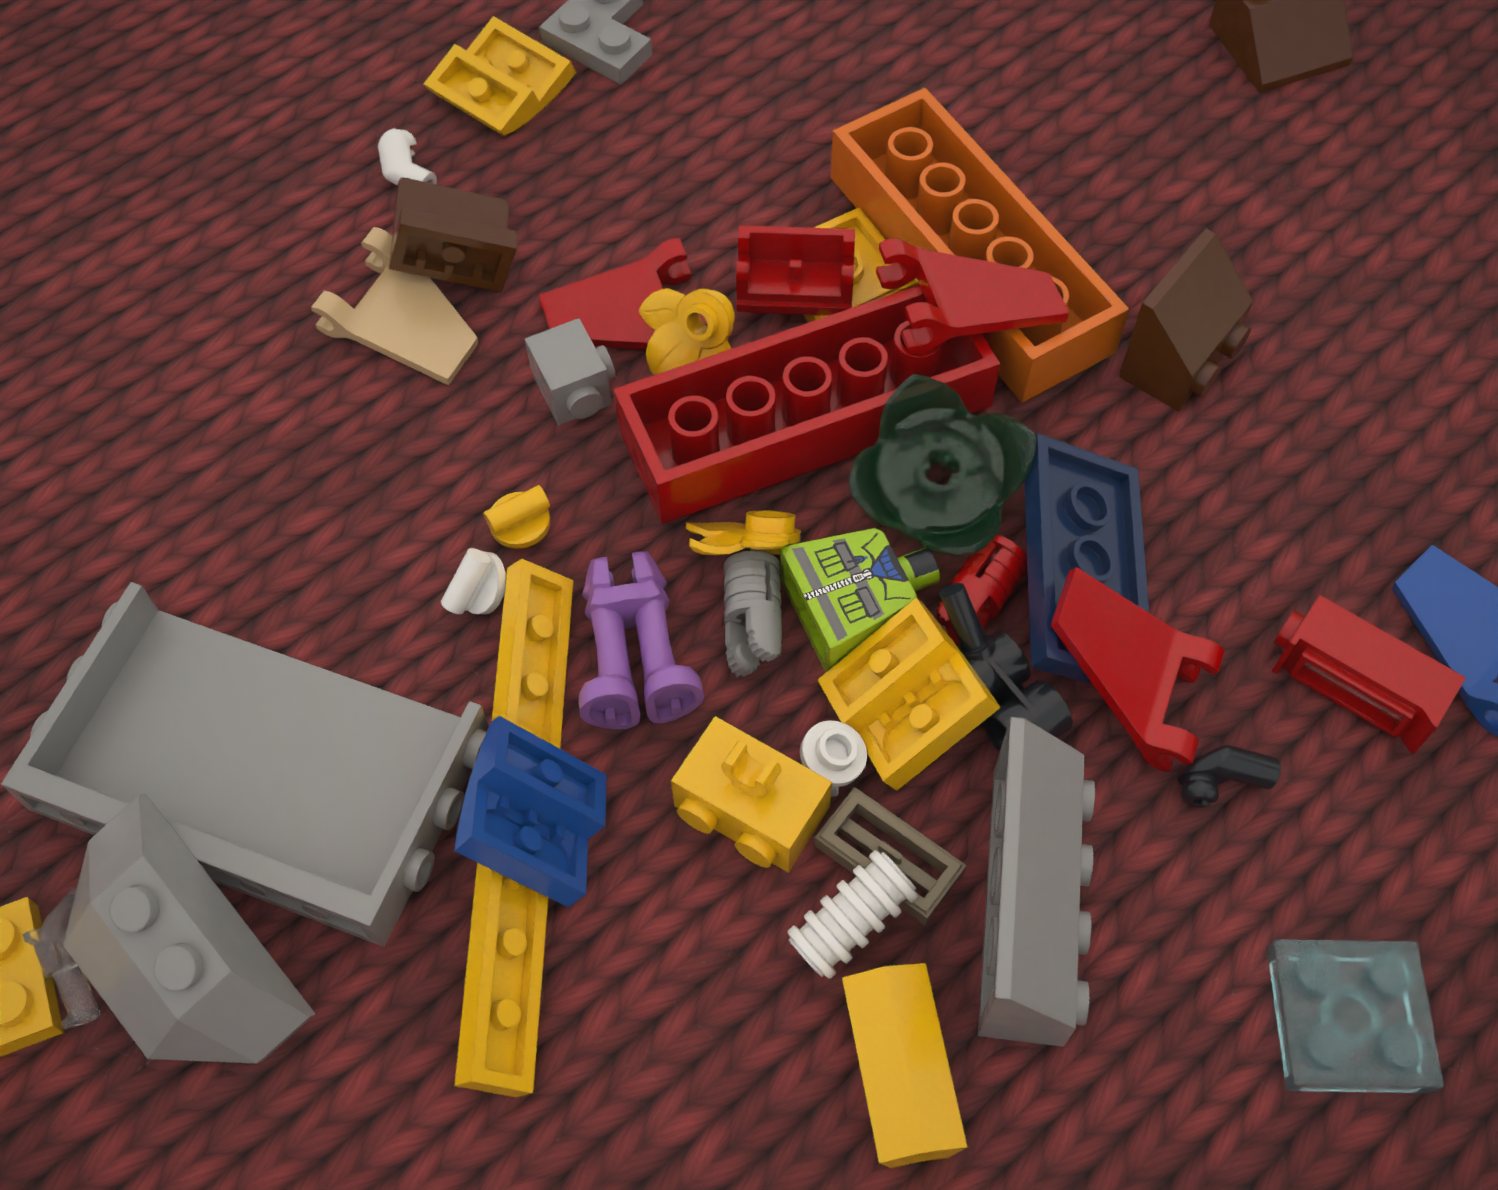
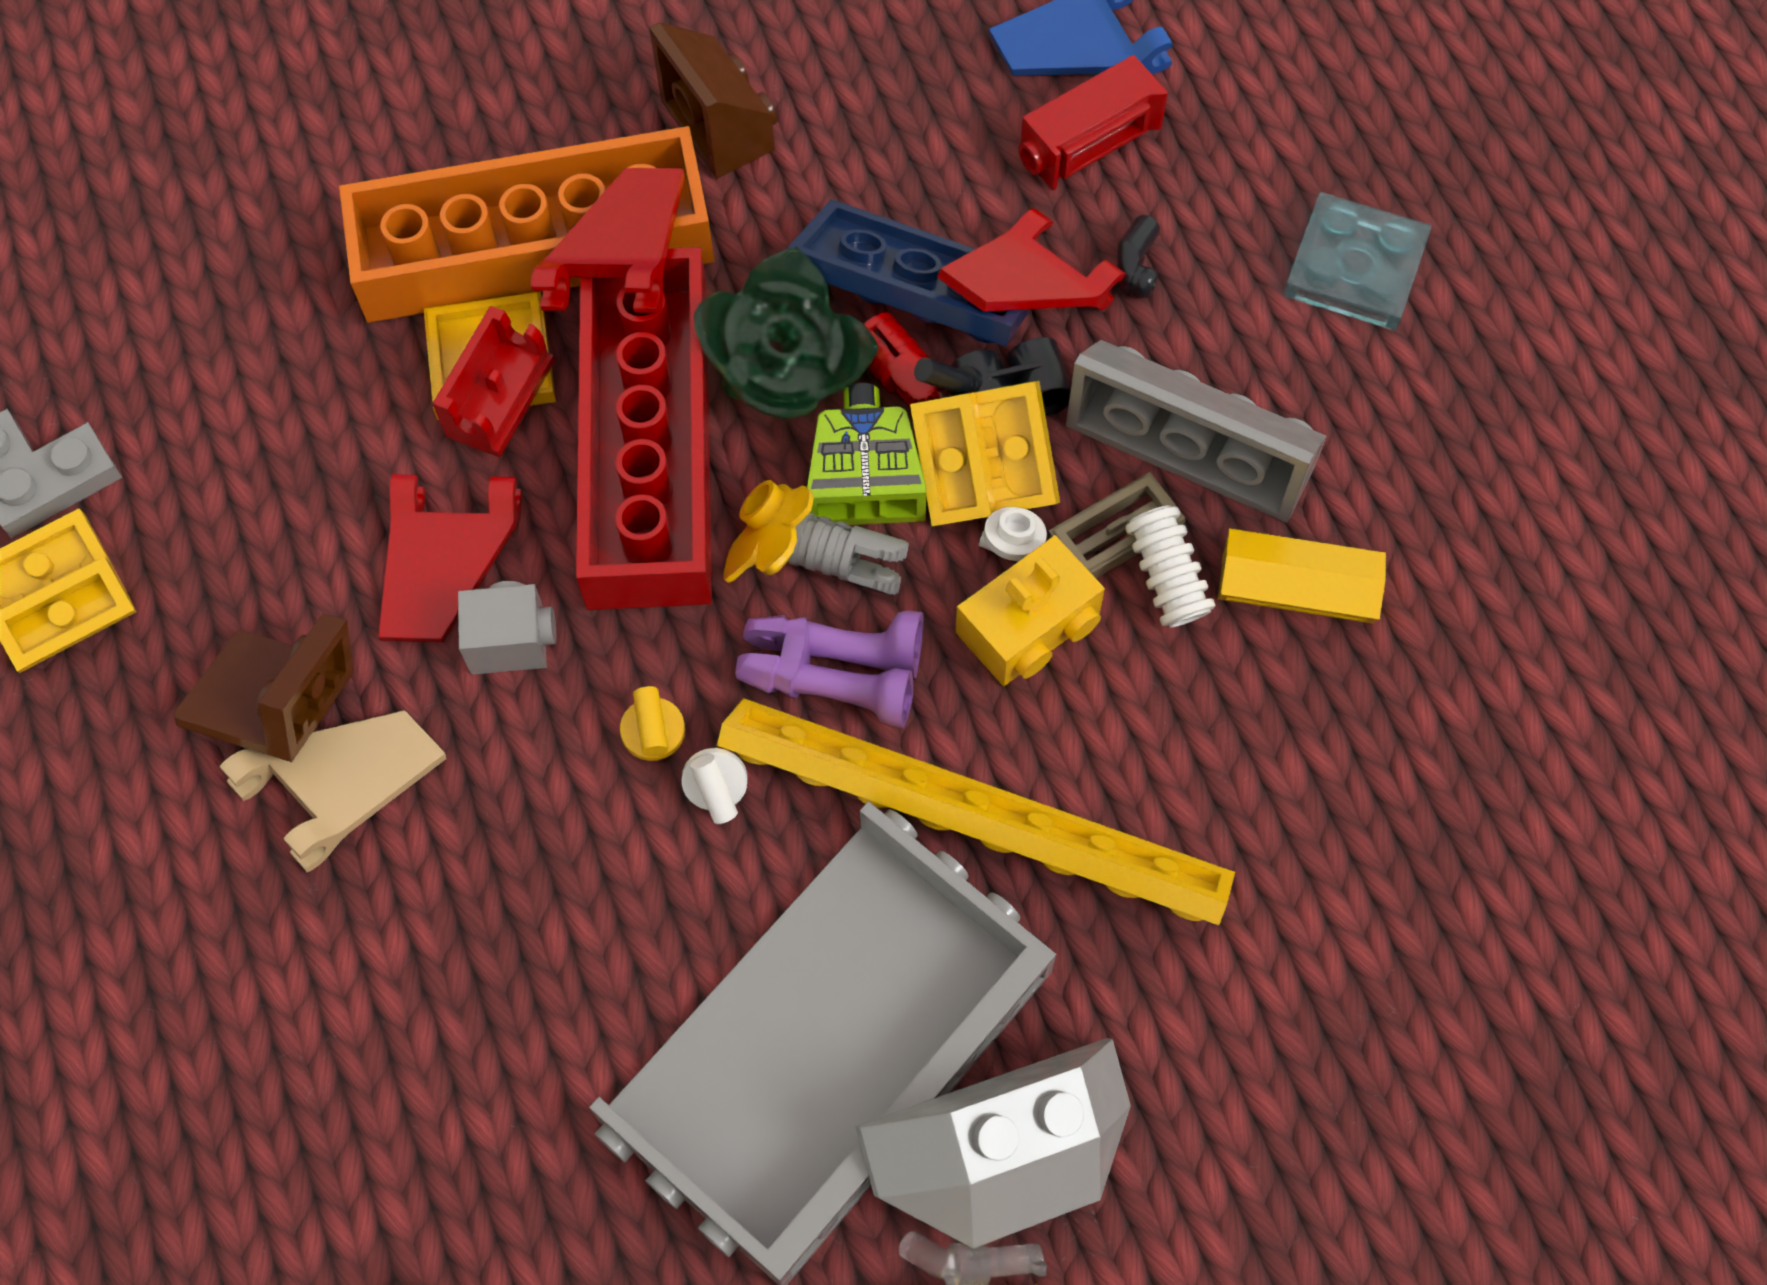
camera: 70 degrees left, 5 degrees up
(397, 158) = (123, 728): white arm -> none
(531, 812) = (983, 790): blue slope -> none
(679, 331) = (524, 509): yellow plate -> none

